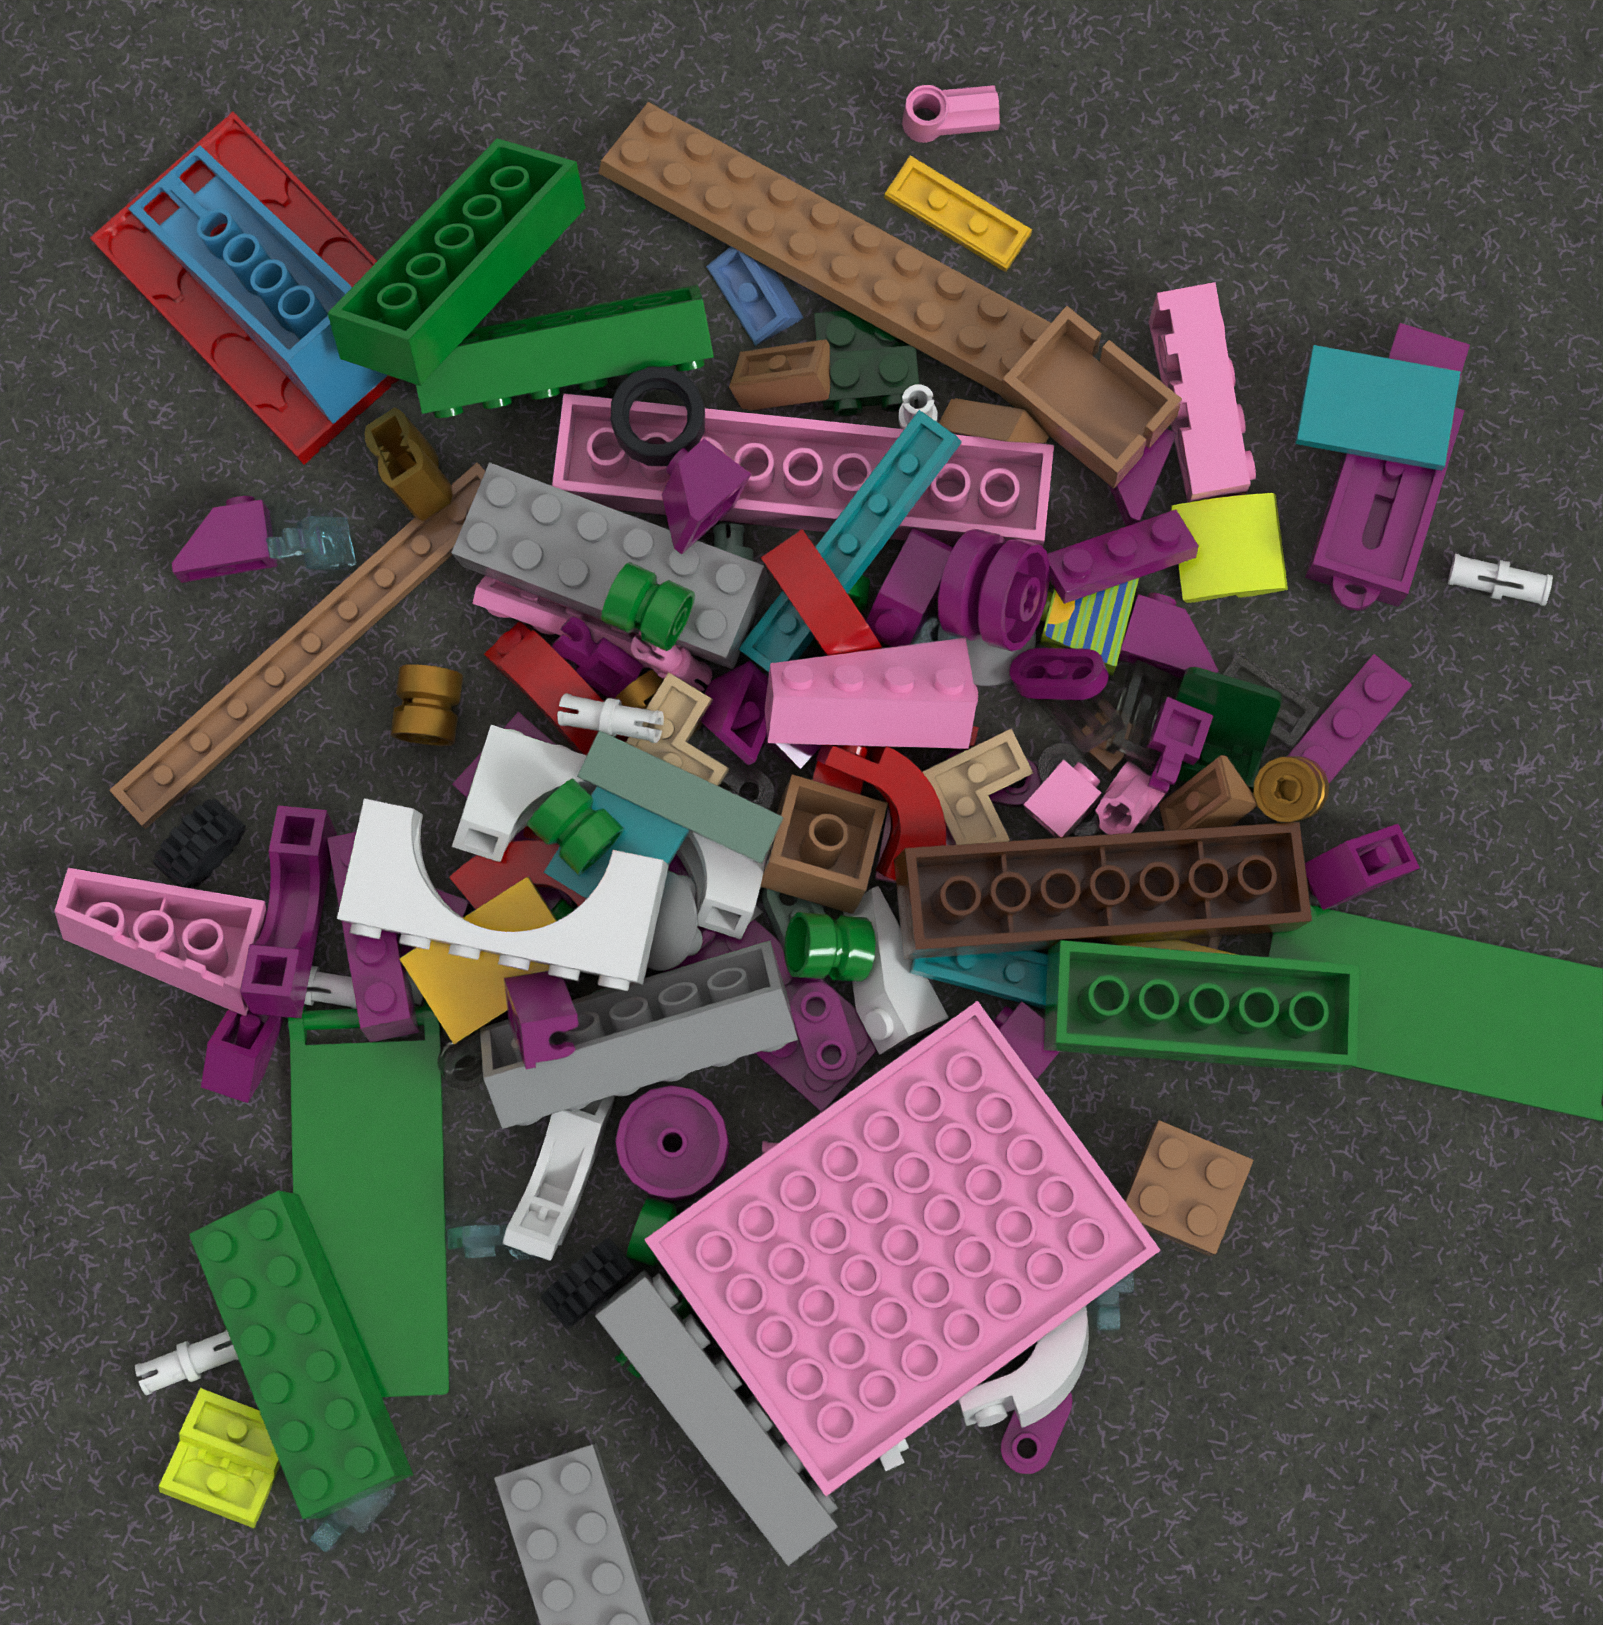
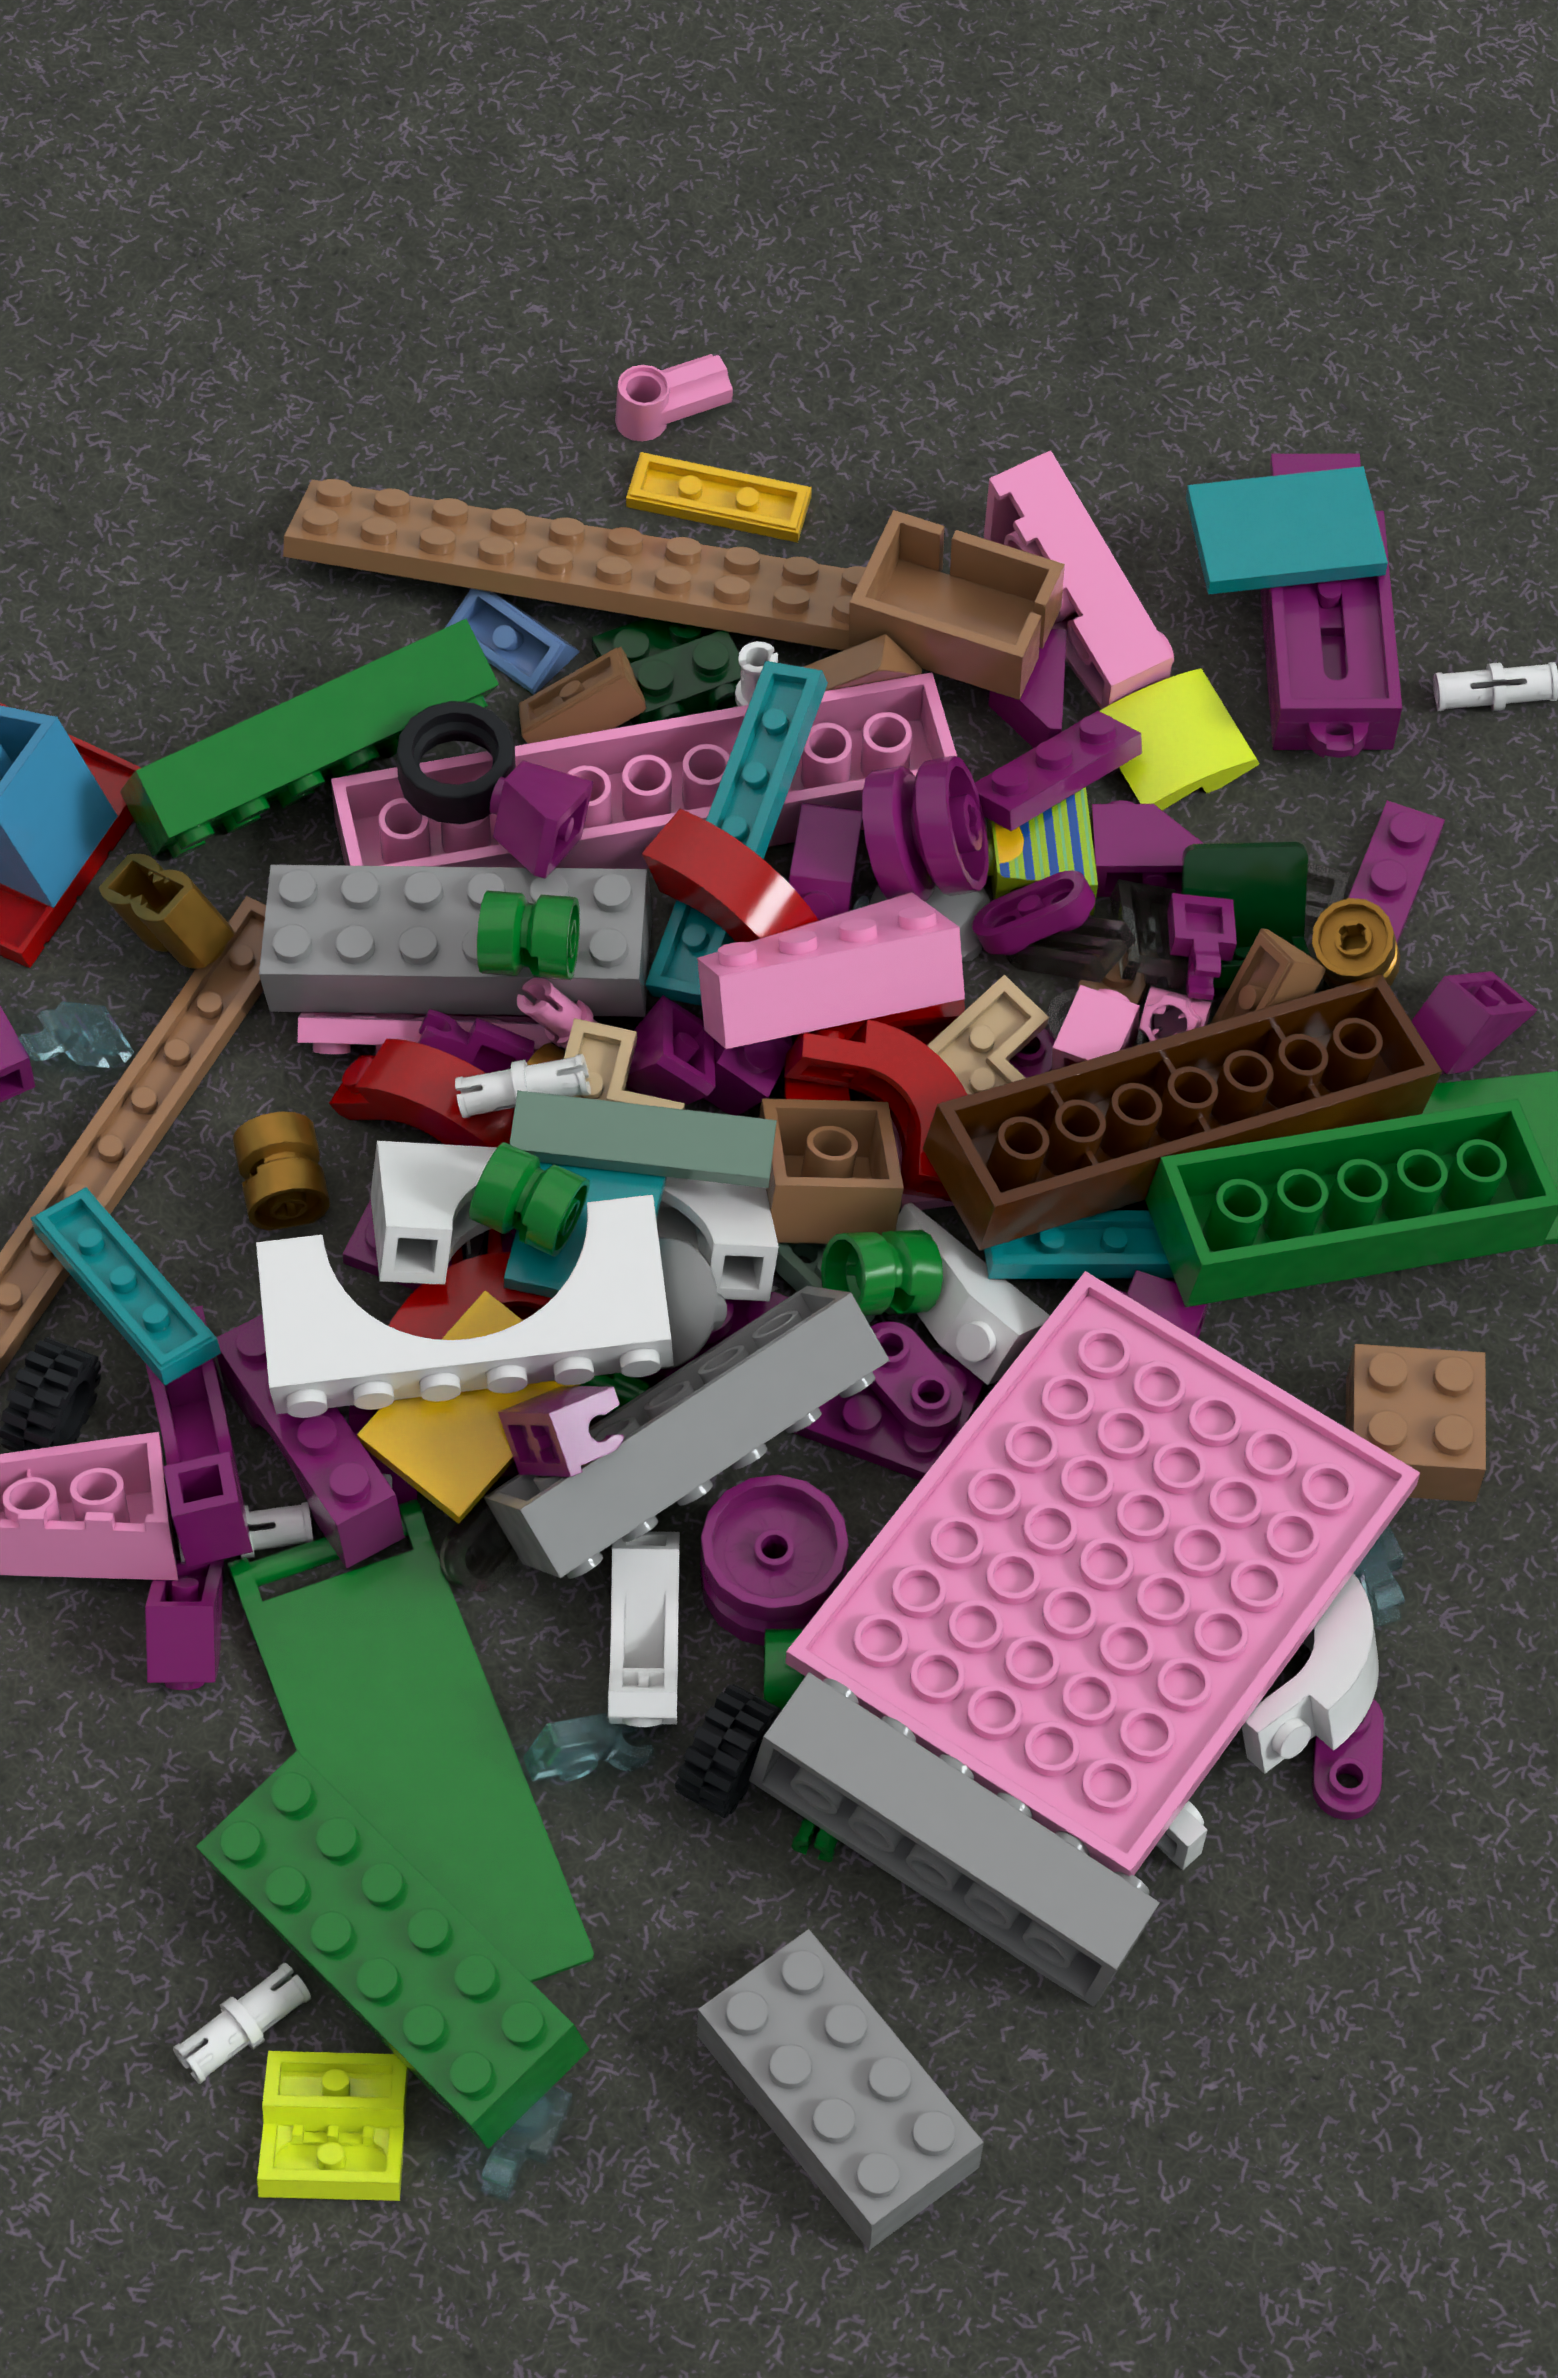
camera: 25 degrees left, 20 degrees down
(277, 775) = (126, 1286): none -> teal tile
(457, 261) = (155, 665): green brick -> none

